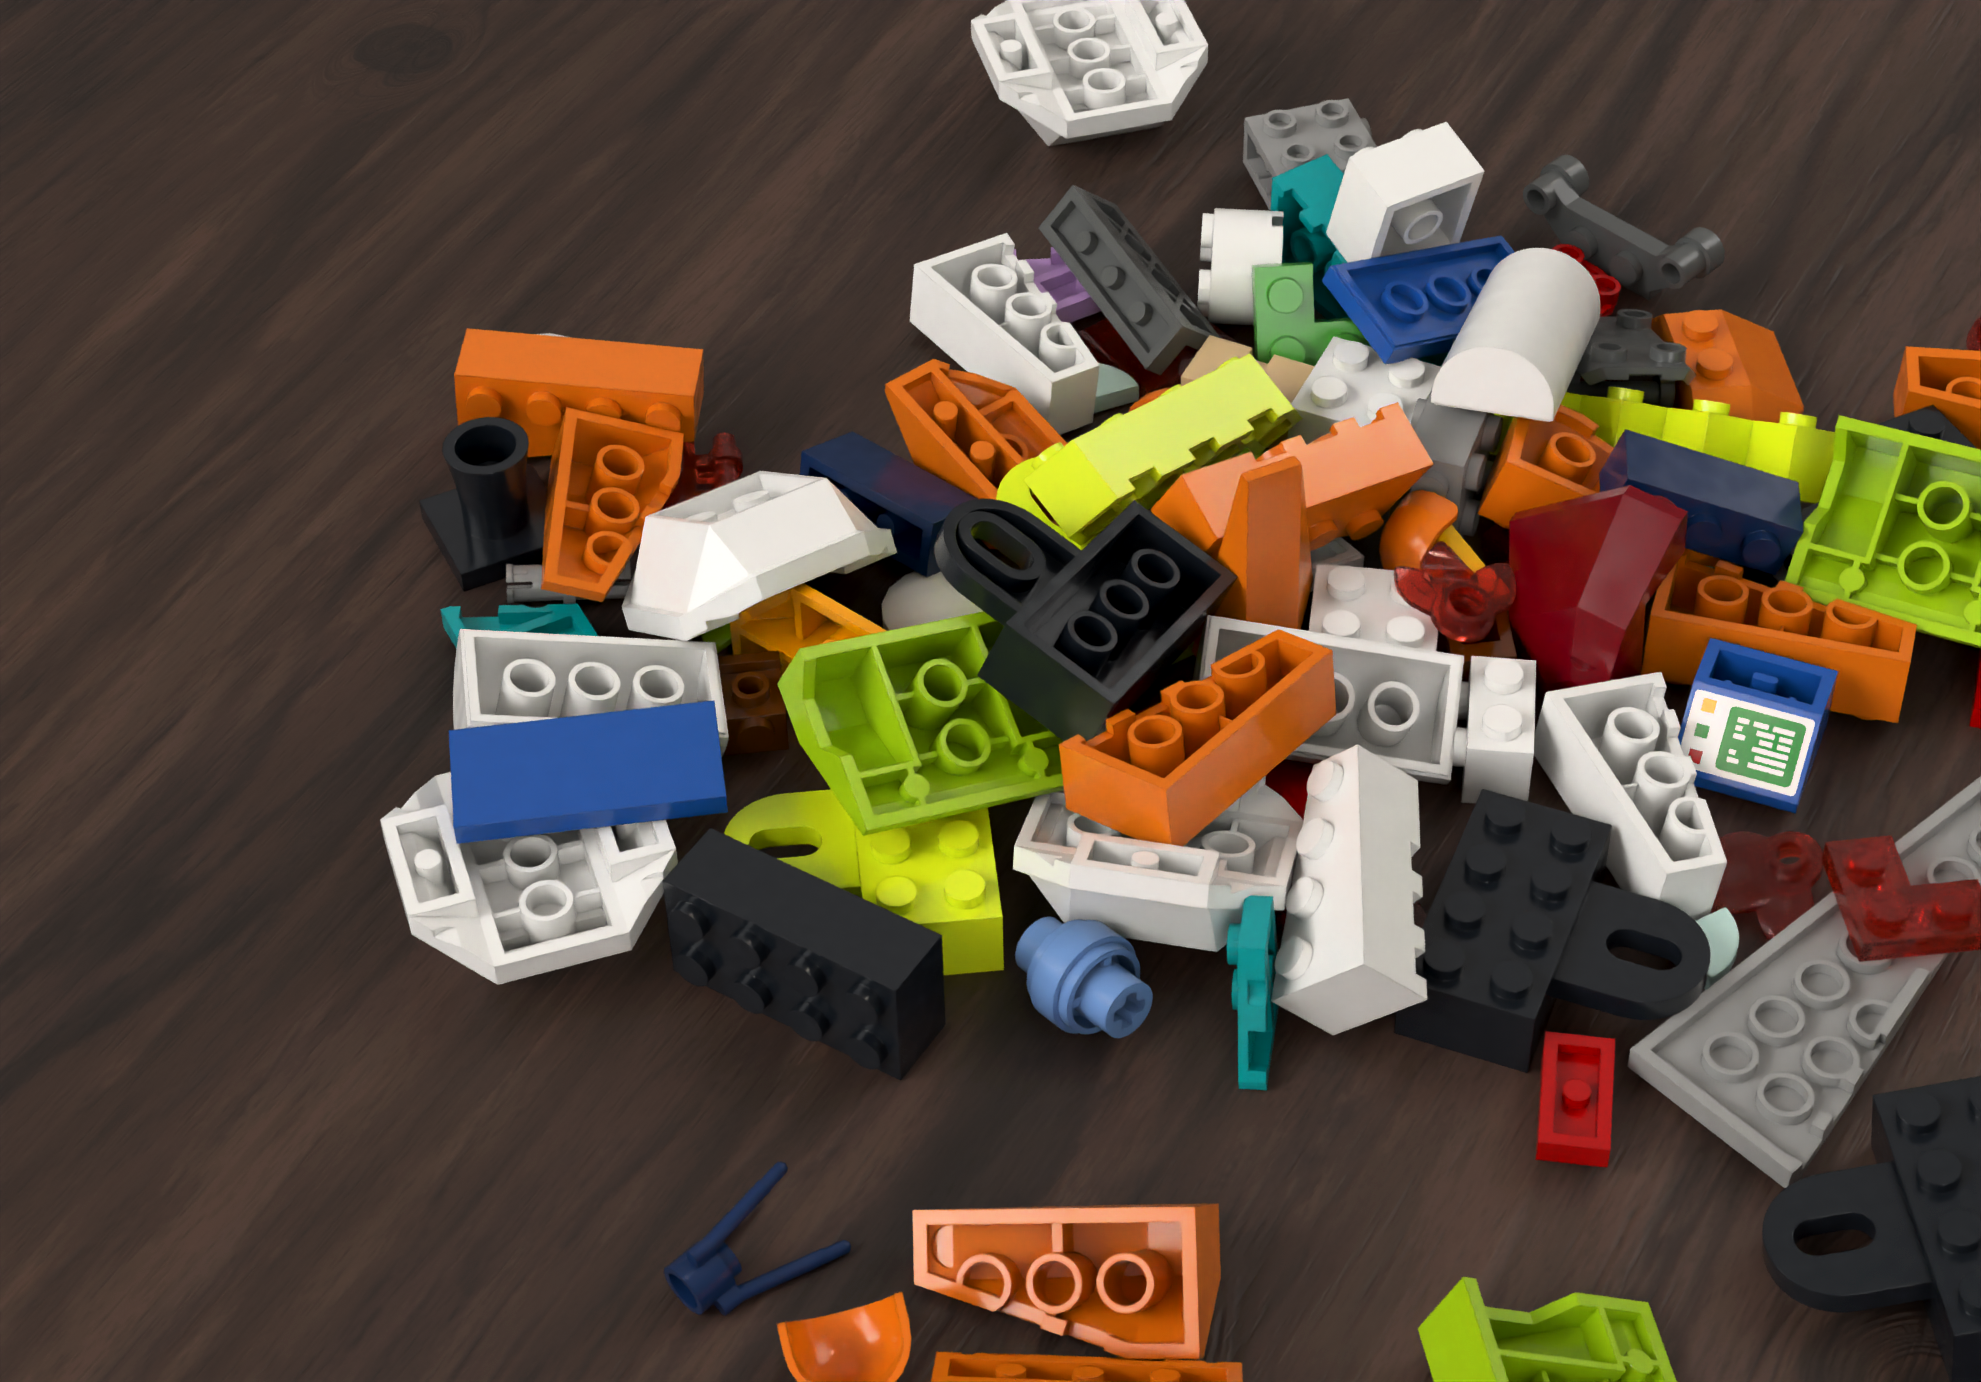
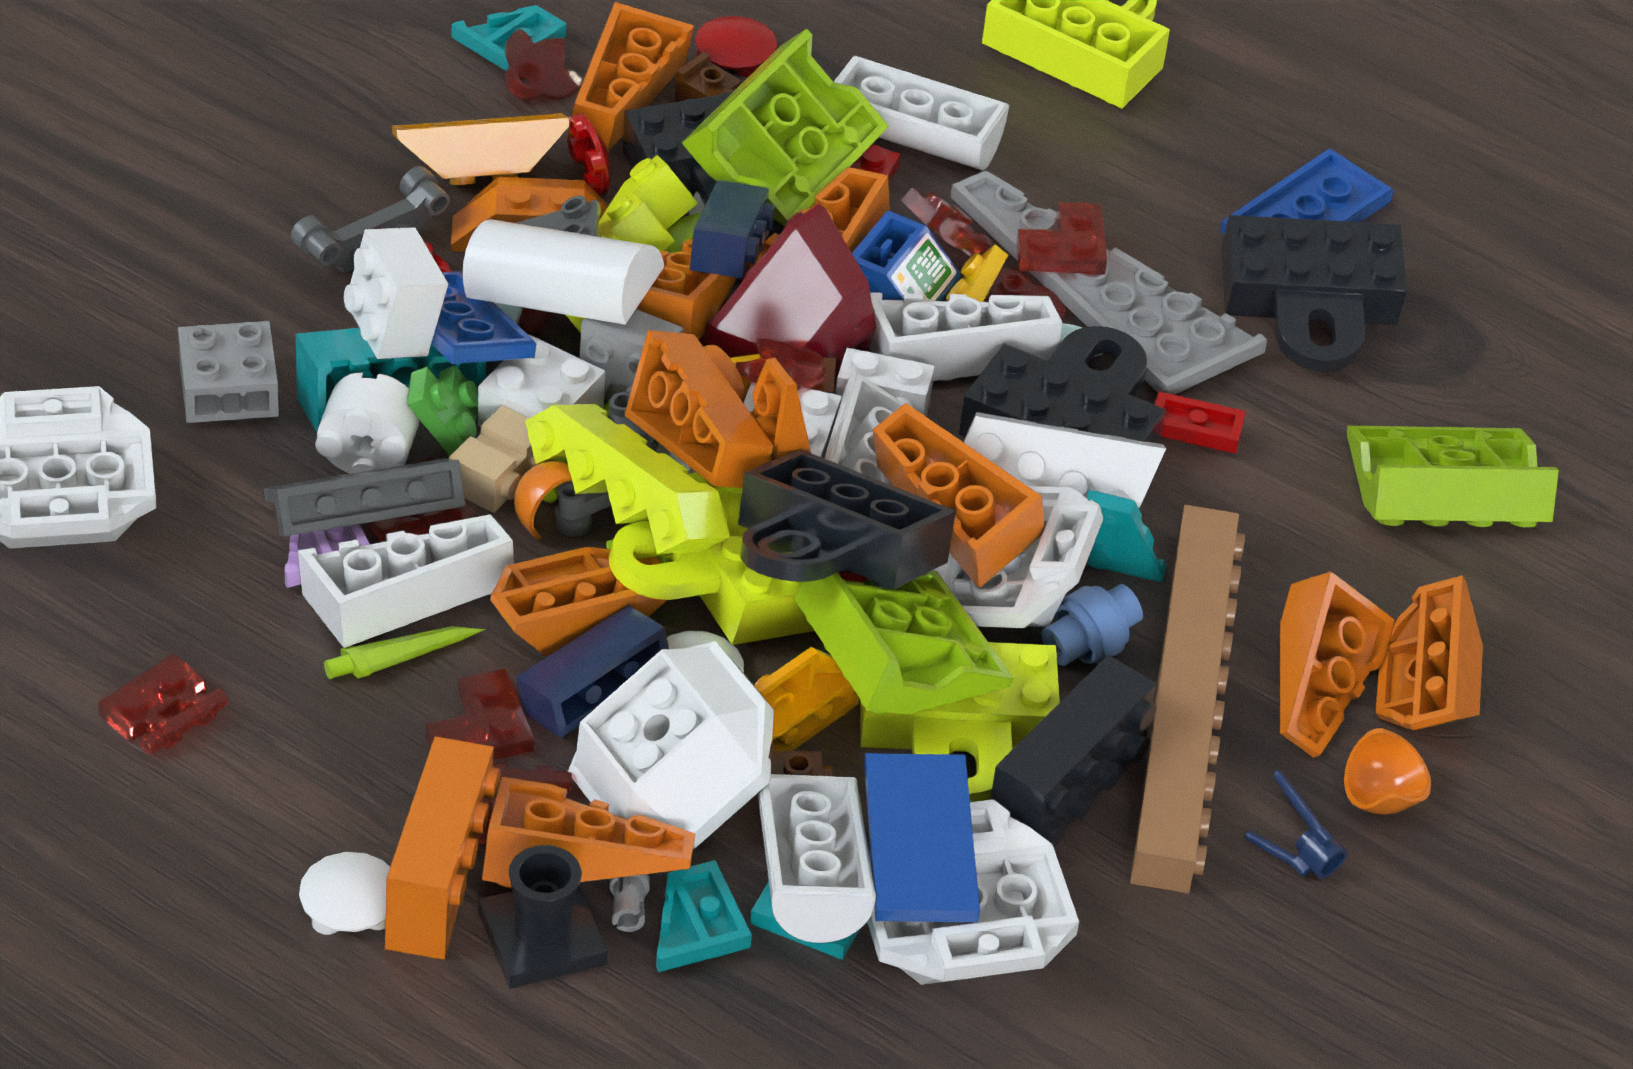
camera: 90 degrees left, 0 degrees up
(786, 428) = (491, 718): none -> clear red plate
(796, 205) = (154, 697): none -> clear red plate
(896, 339) = (375, 656): none -> lime bar
(989, 1101) = (1187, 703): none -> medium nougat brick
(1740, 807) = (980, 274): none -> yellow plate
(1811, 297) = (482, 145): none -> wedge
(1843, 383) = (591, 151): none -> red dish
(1880, 757) = (947, 221): none -> clear red plate

